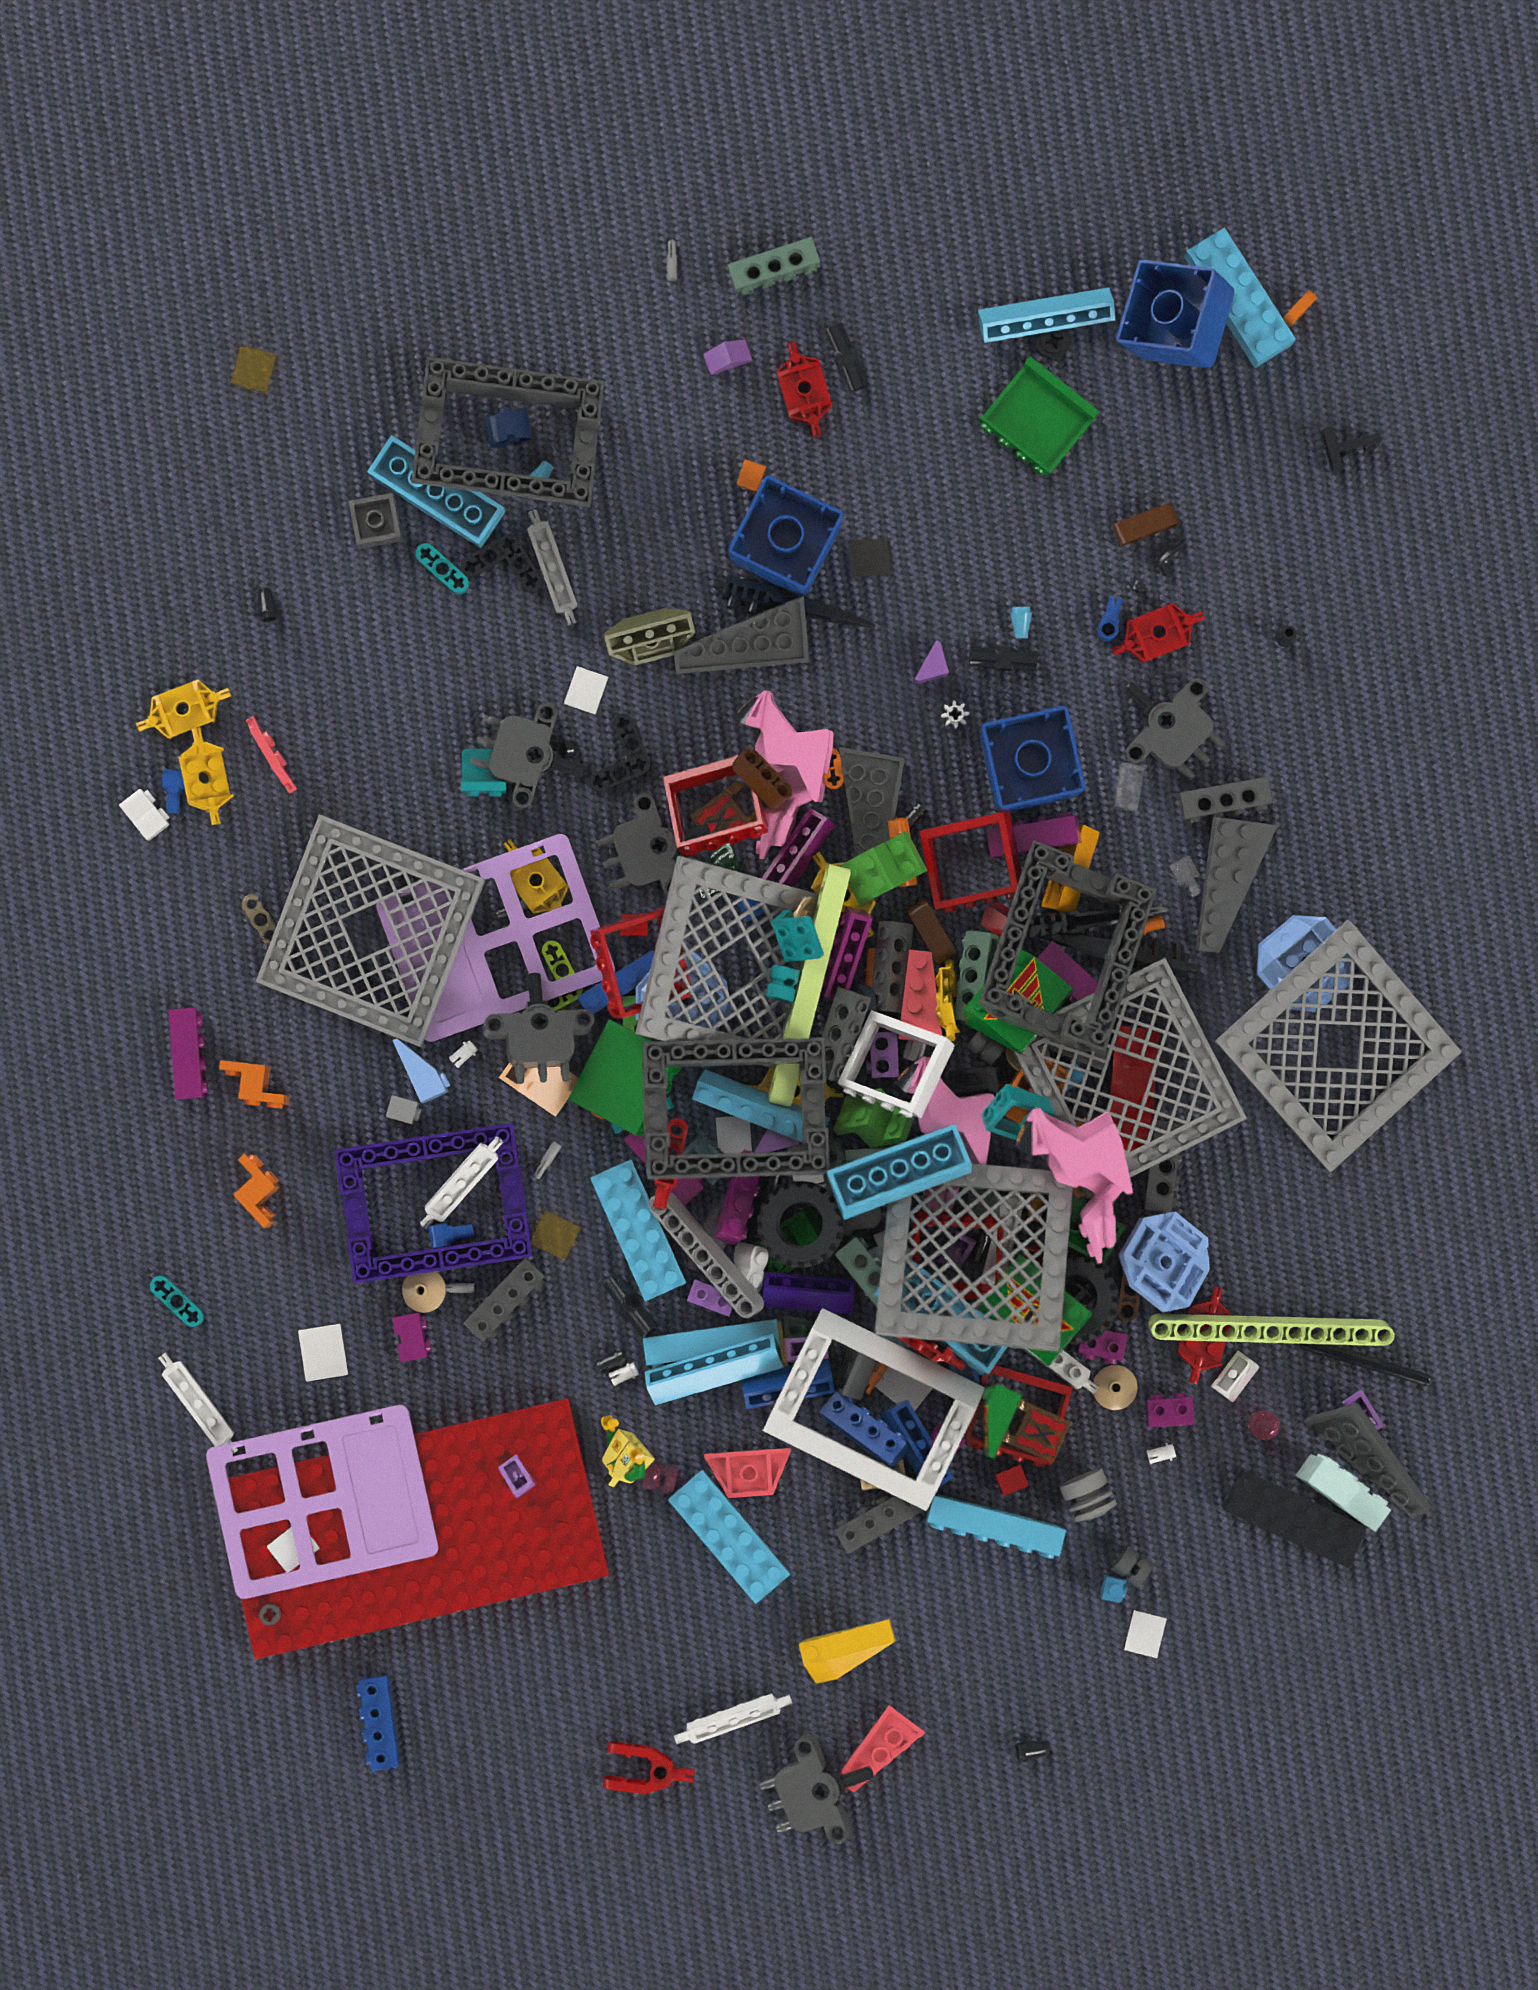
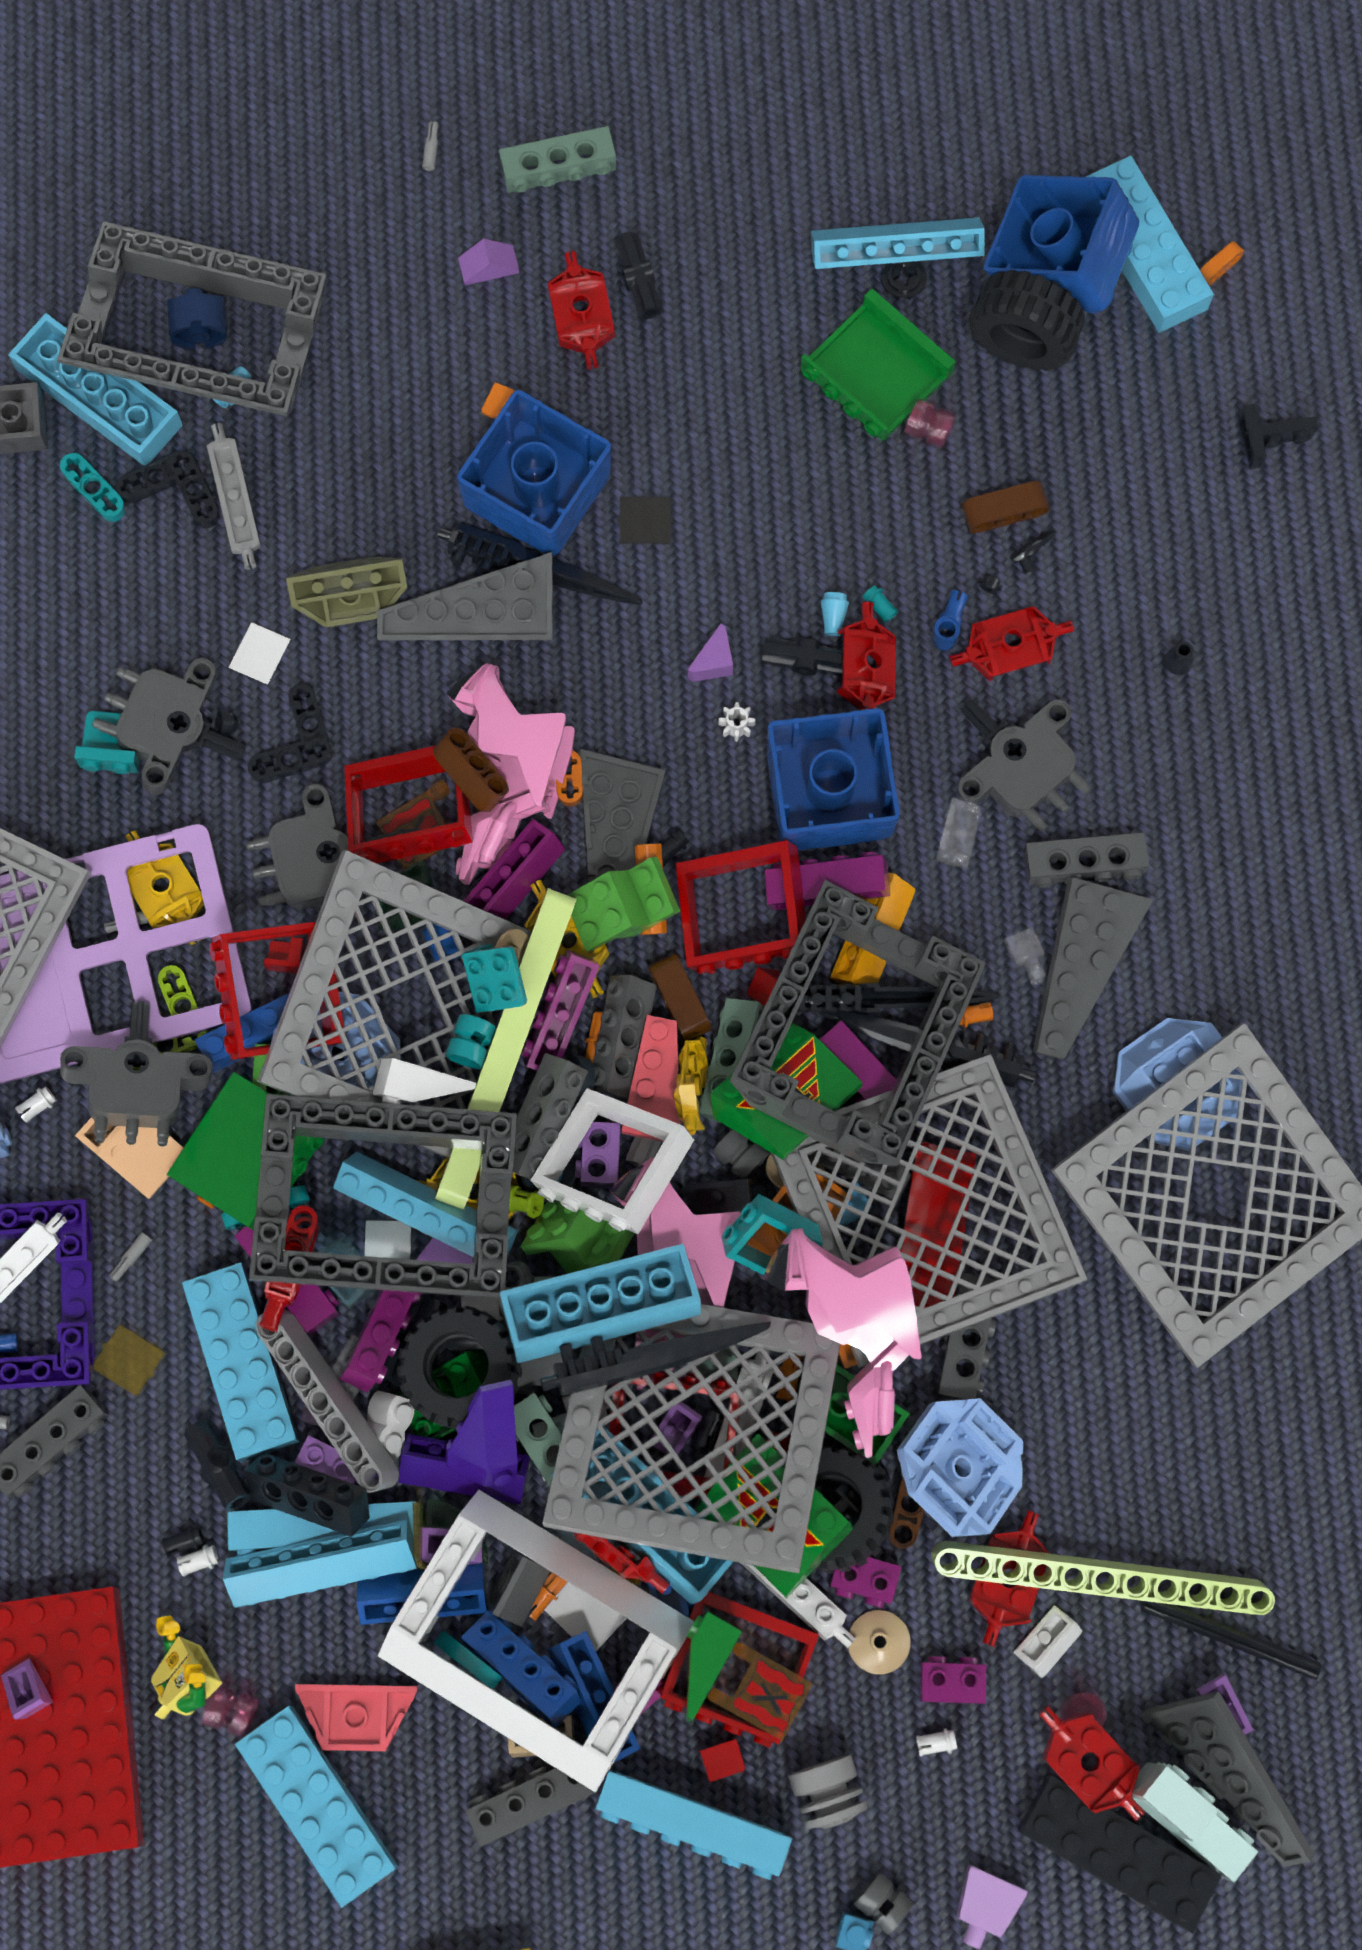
camera: 10 degrees right, 10 degrees down
(699, 1321) = (307, 1494): none -> black brick
(745, 1022) = (407, 1082): none -> white slope
(825, 1427) = (467, 1660): none -> teal beam
(827, 1277) = (487, 1439): none -> dark purple wedge
(834, 1096) = (525, 1201): none -> lime bush
(915, 1216) = (611, 1367): none -> black piece
(1050, 679) = (861, 683): none -> red plate
(1055, 610) = (881, 604): none -> teal pin
(1088, 468) = (930, 423): none -> clear pink wheel
(1152, 377) = (1027, 320): none -> black tyre
(1204, 1561) = (987, 1905): none -> lavender torso
(1286, 1468) = (1112, 1778): none -> red plate

